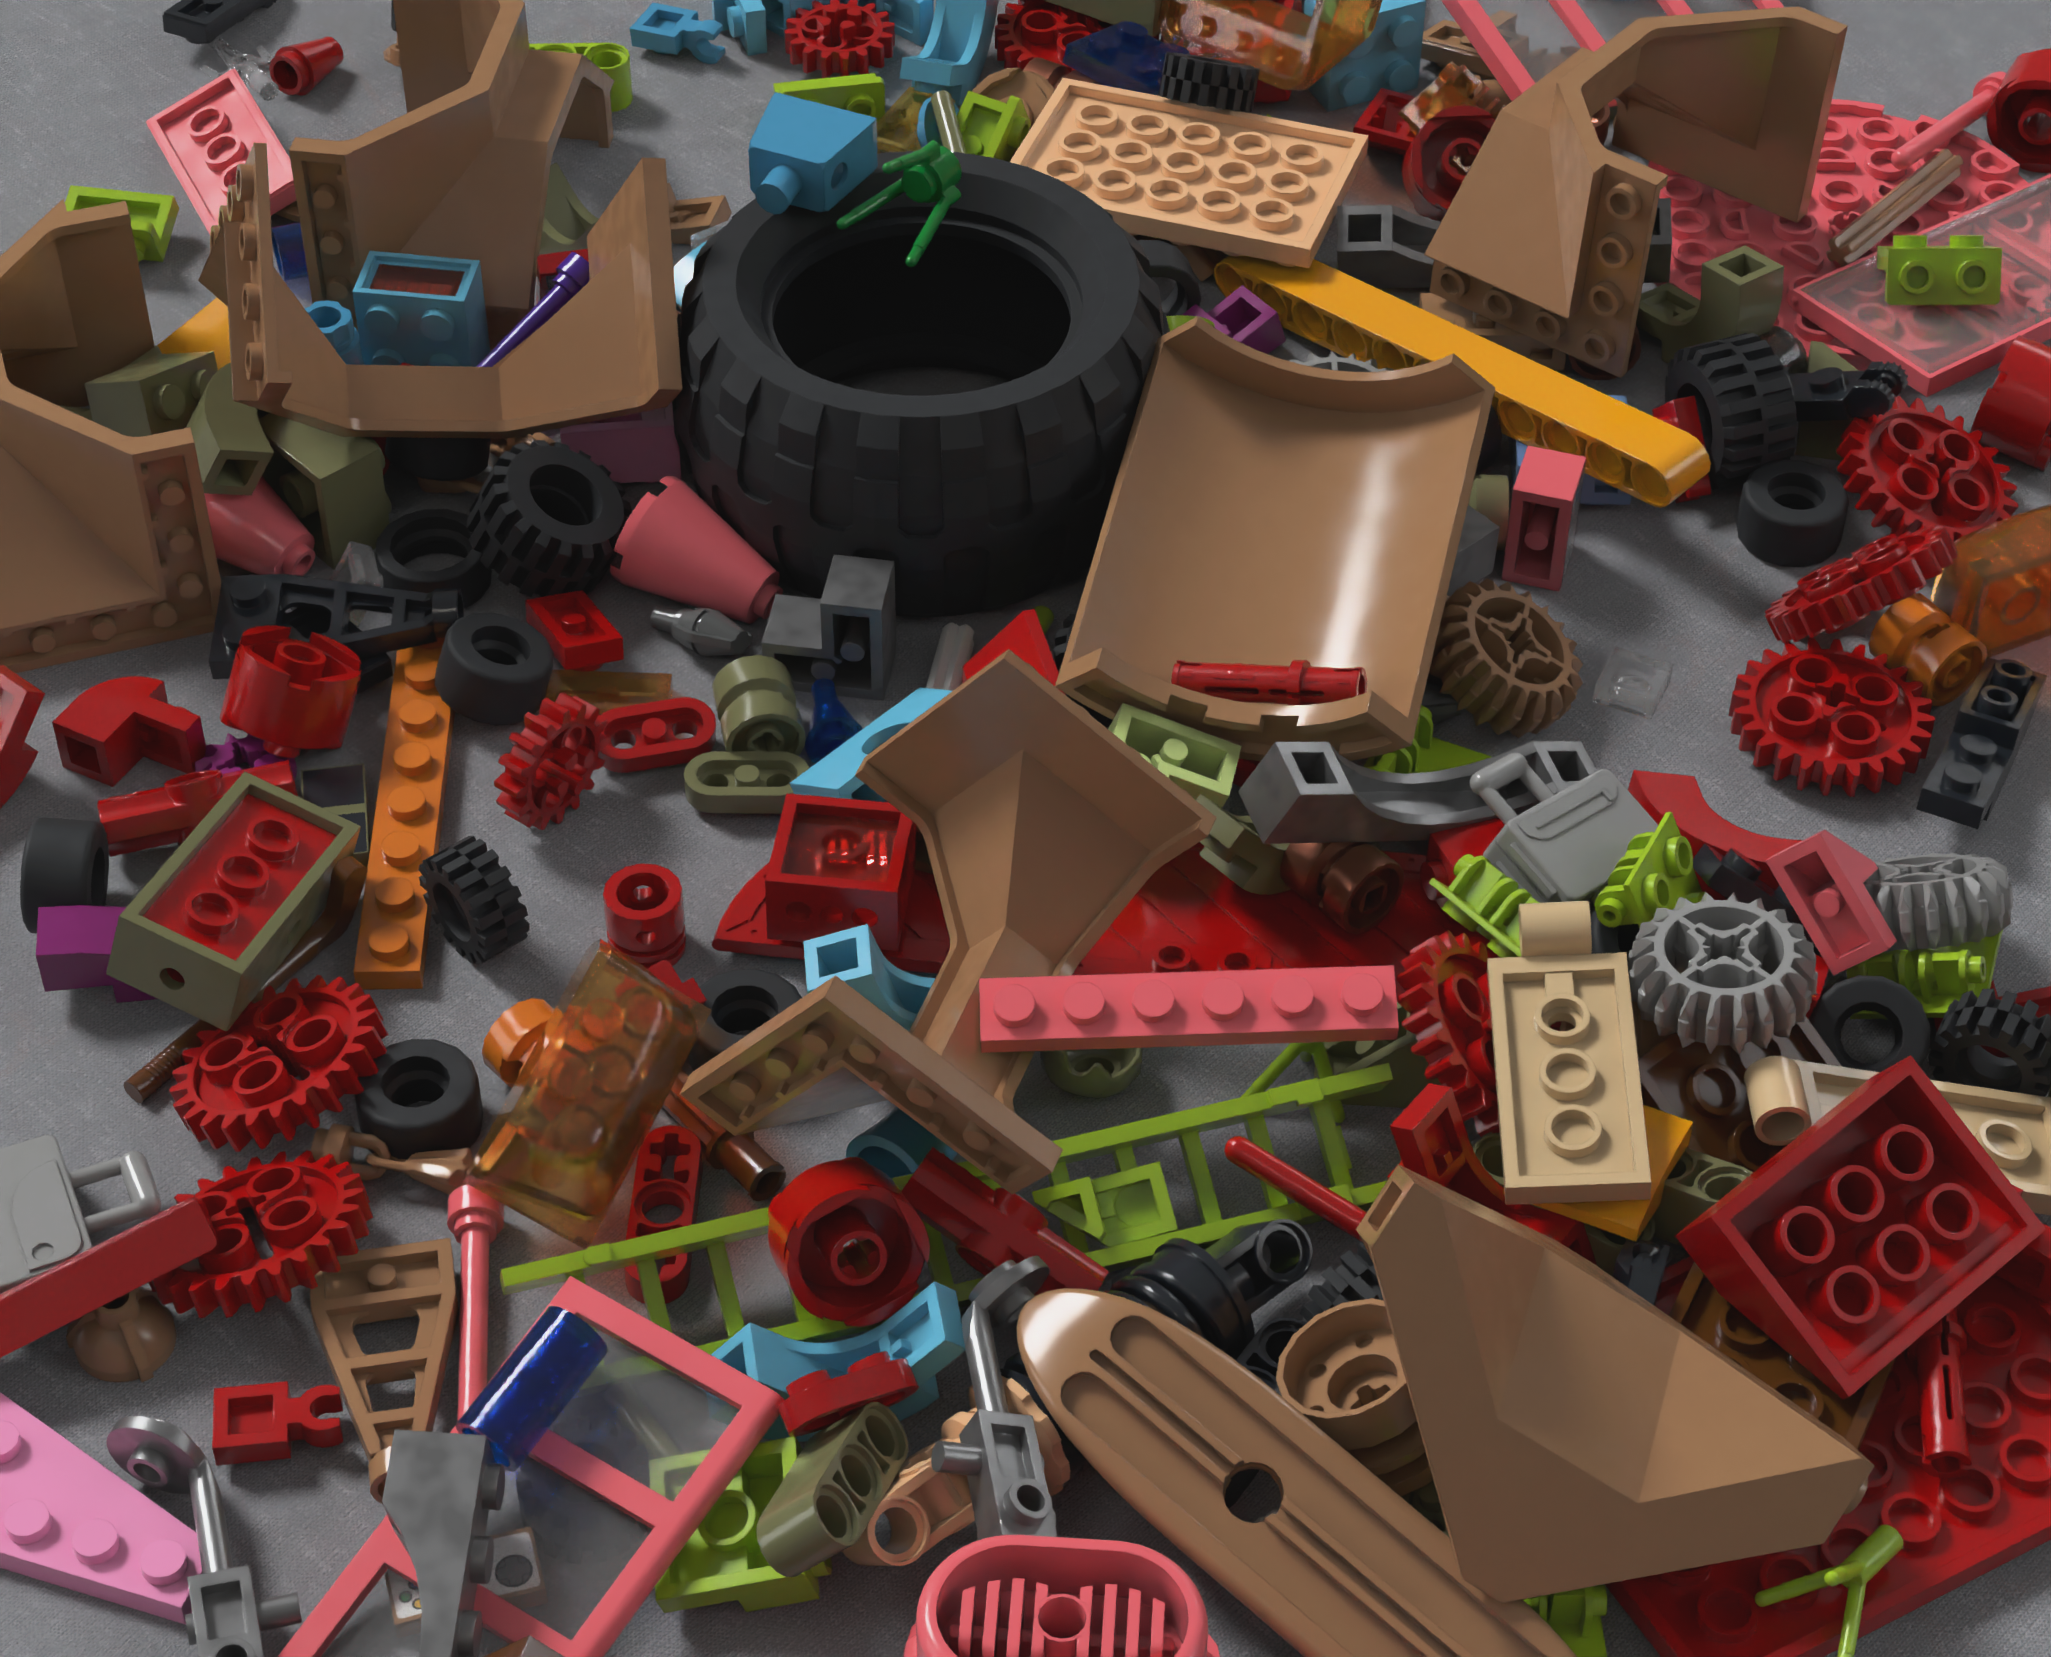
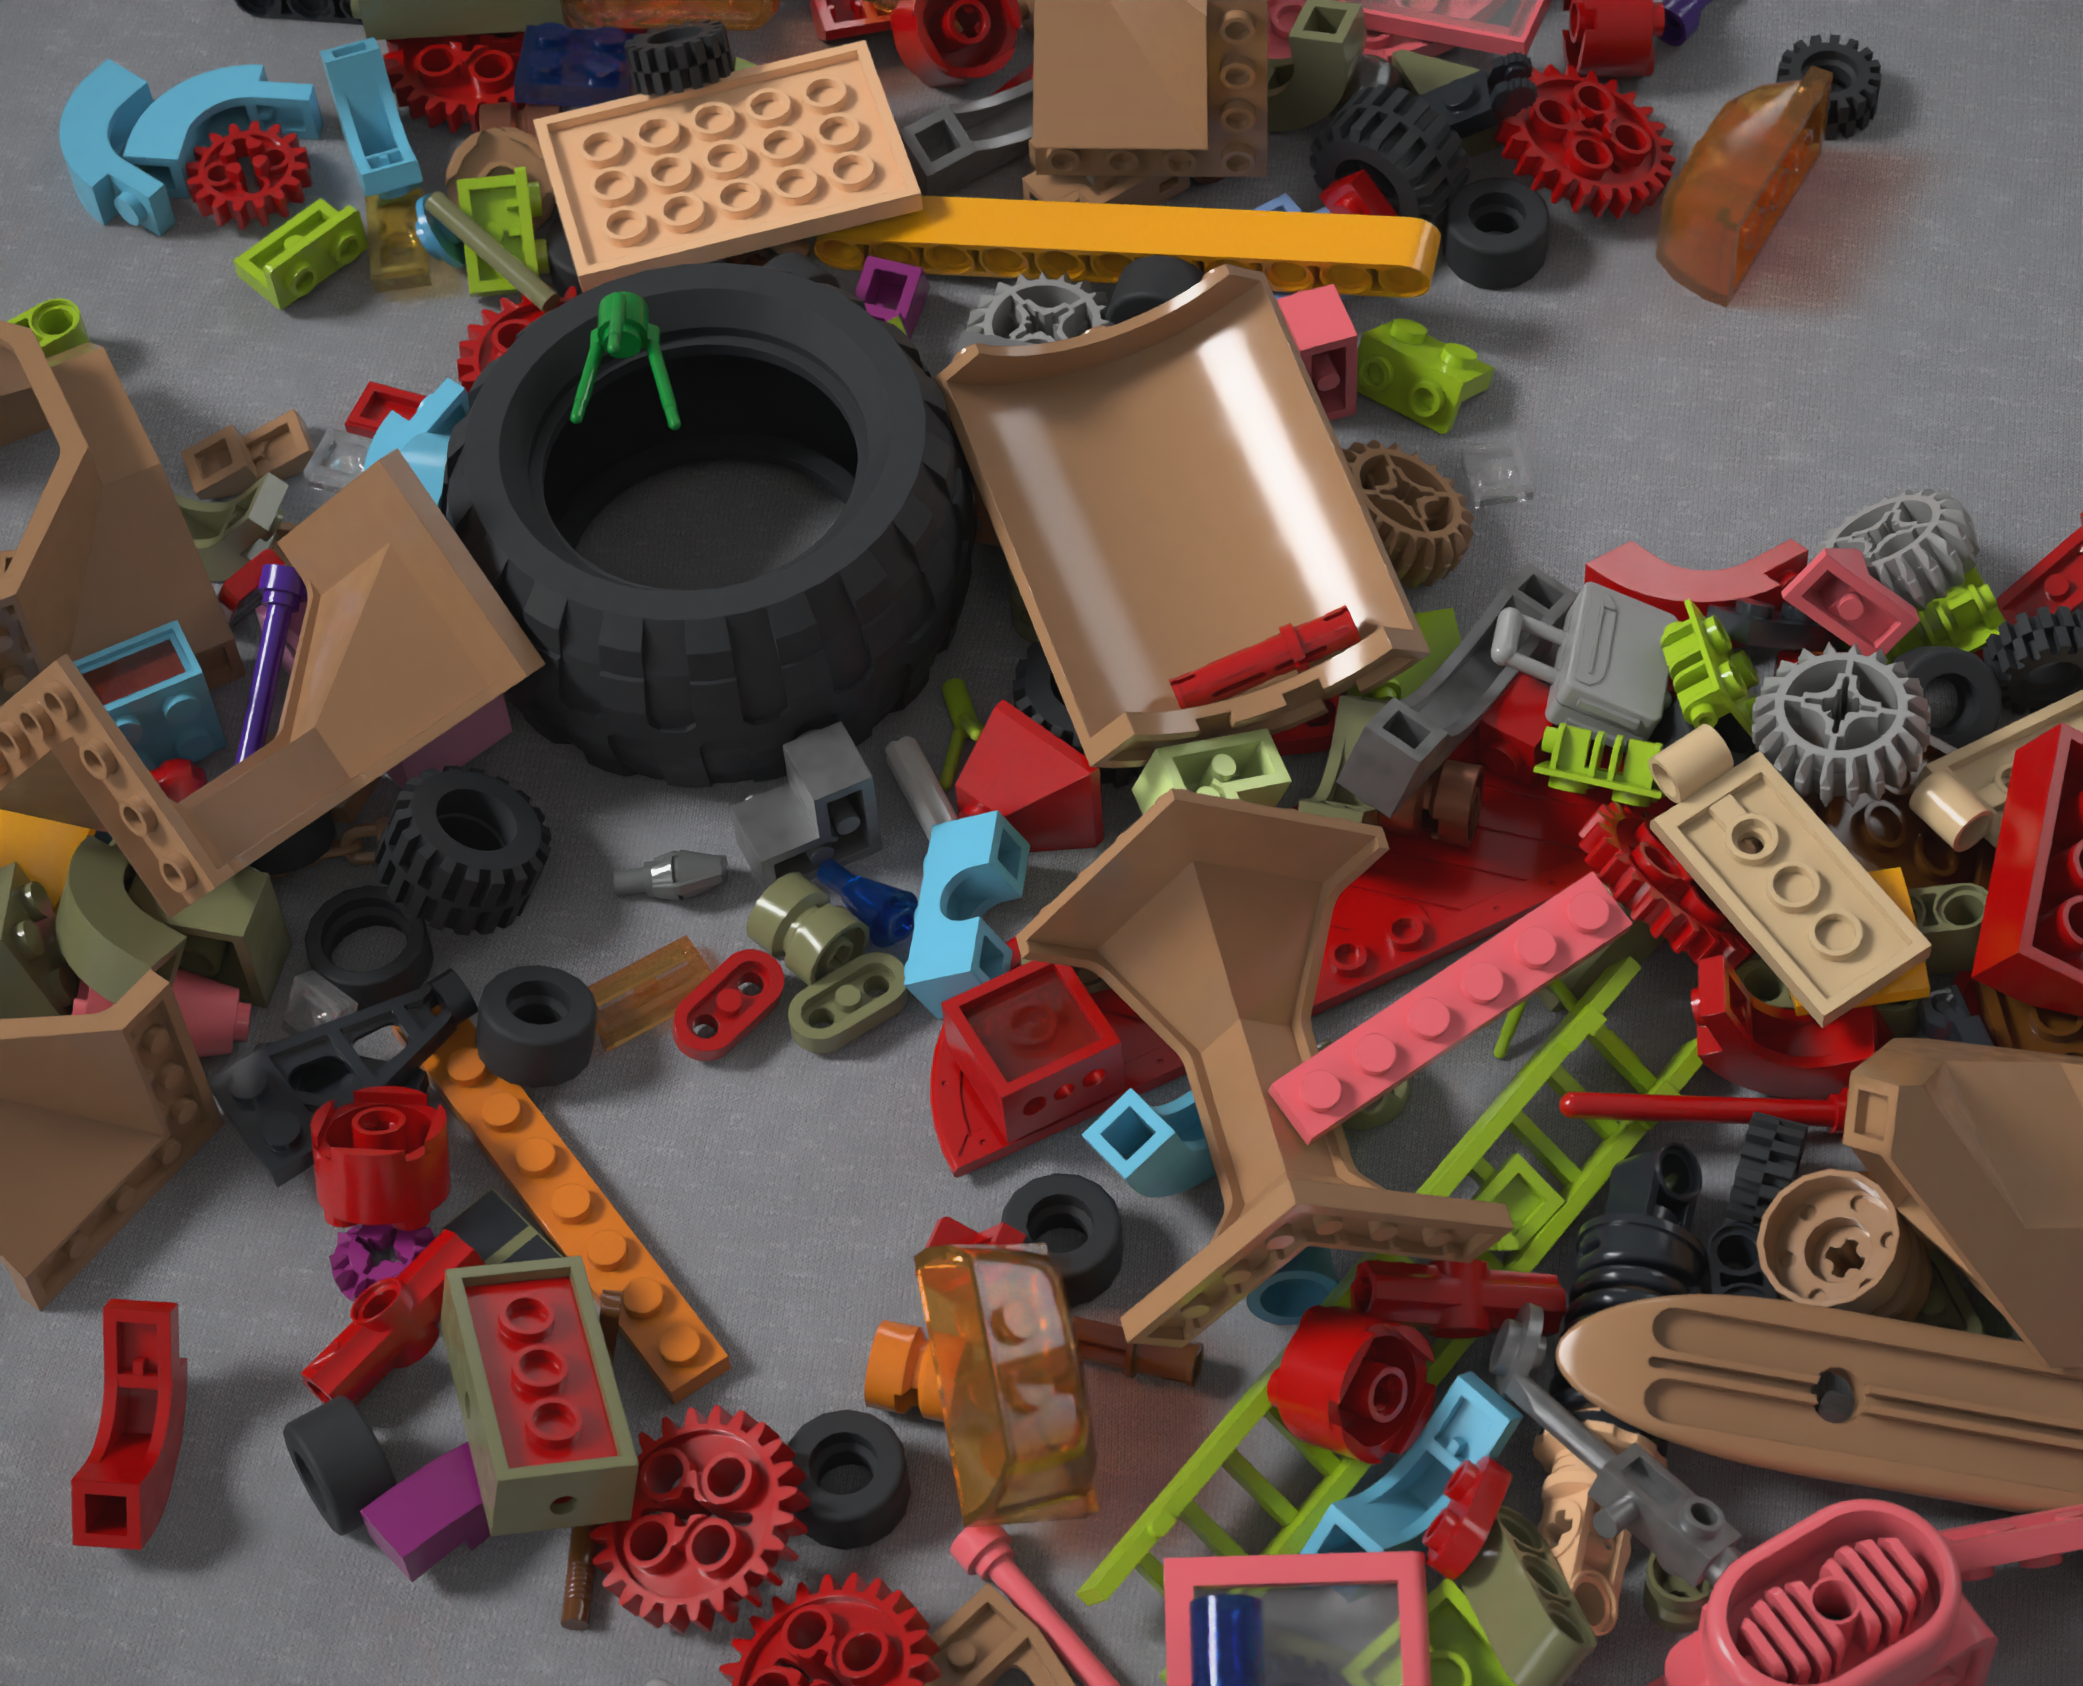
camera: 30 degrees left, 10 degrees up
(123, 722) = (235, 1278): red brick -> none
(437, 1169) = (919, 1524): medium nougat piece -> none
(474, 900) = (732, 1262): black tyre -> none
(551, 761) = (684, 1089): red gear -> none
(575, 630) = (567, 941): red plate -> none
(649, 920) = (885, 1187): red piece -> none
(653, 1190) = (1131, 1416): red beam -> none
(671, 28) = (73, 248): dark azure plate -> none
(693, 556) = (621, 809): coral cone -> none
(809, 154) = (492, 364): dark azure torso -> none
(1632, 580) = (1419, 373): none -> lime bracket
(1831, 717) = (1677, 417): red gear -> none
(1866, 582) = (1648, 249): red gear -> none
(1930, 646) = (1706, 309): orange wheel -> none
(1983, 743) = (1811, 377): black slope -> none

